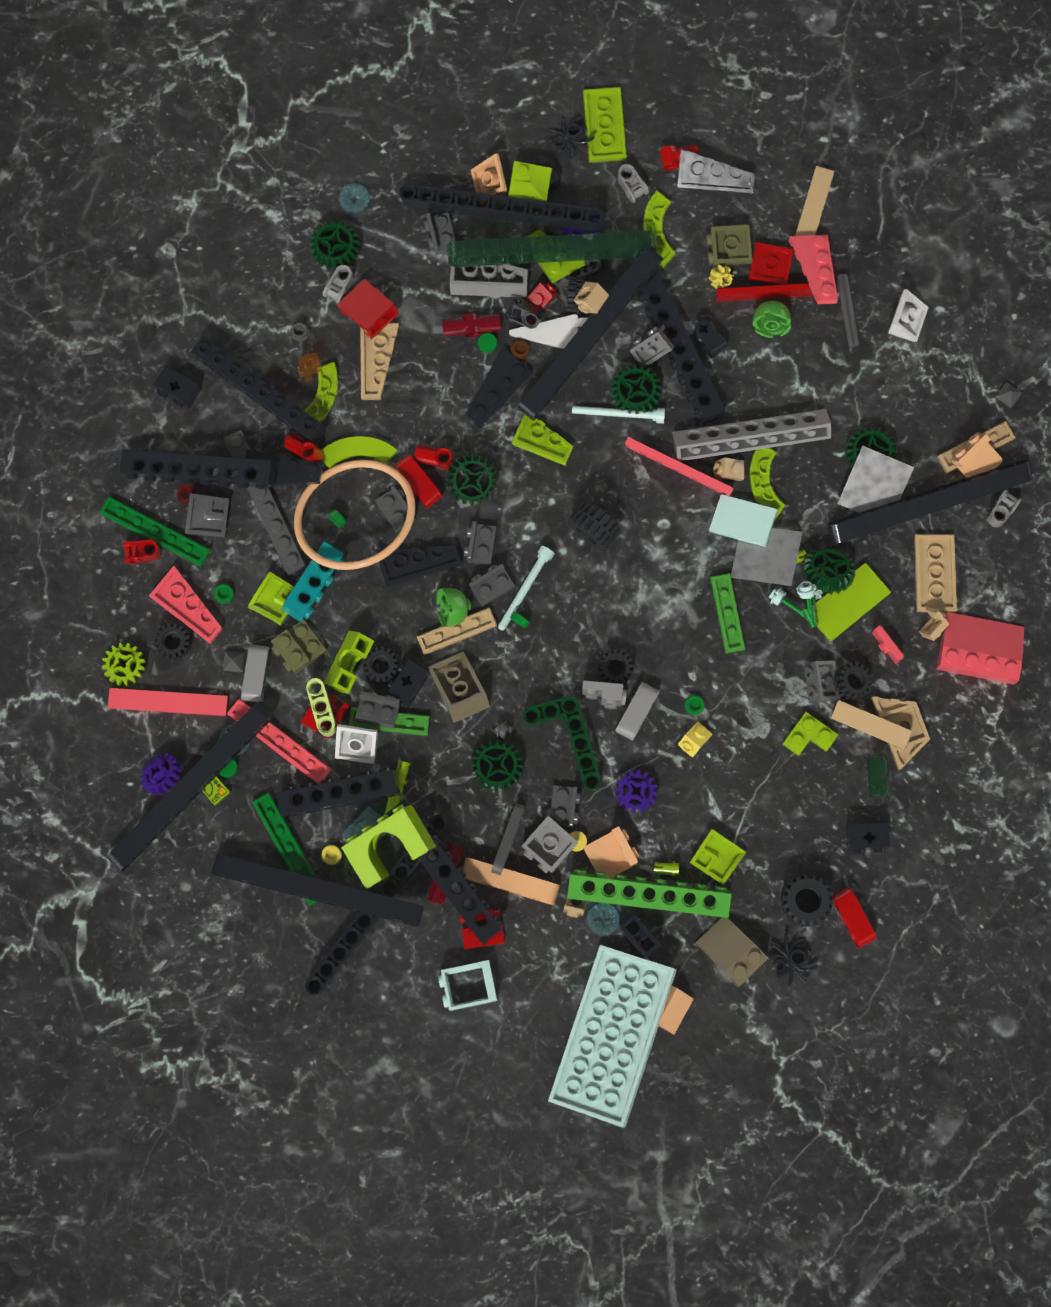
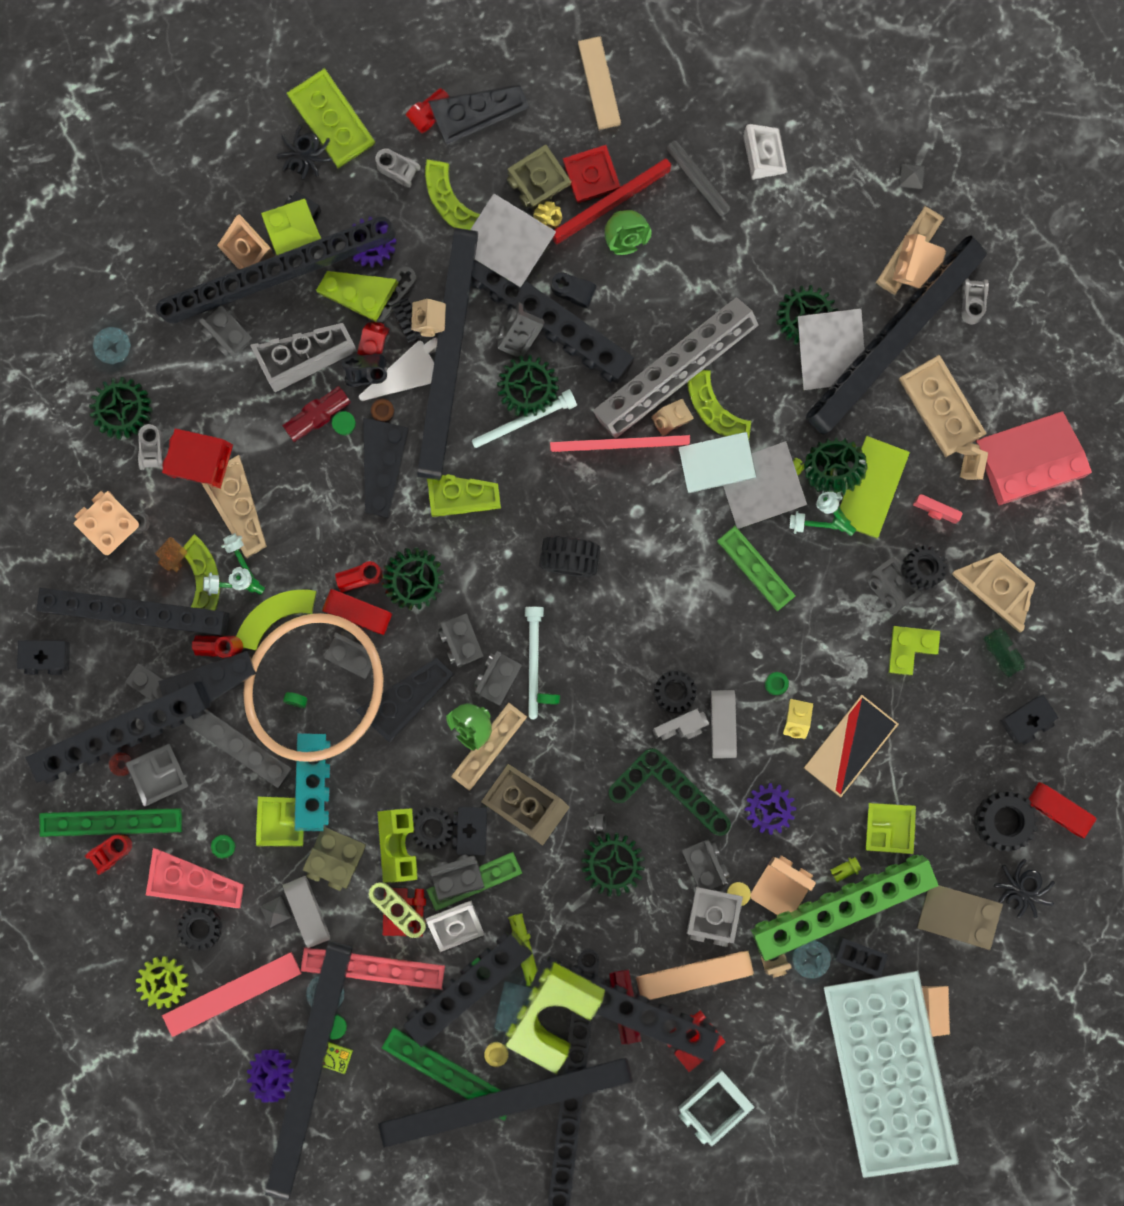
camera: 35 degrees left, 5 degrees up
(276, 318) = (105, 522): none -> light nougat bracket
(347, 408) = (239, 578): none -> light aqua plant
(508, 839) = (669, 934): dark grey beam -> none
(549, 248) = (353, 287): clear green beam -> none
(683, 277) = (510, 240): none -> flat silver sticker
(723, 781) = (851, 746): none -> tile
(816, 264) = (641, 149): coral wing -> none
(871, 724) = (968, 602): tan tile -> none

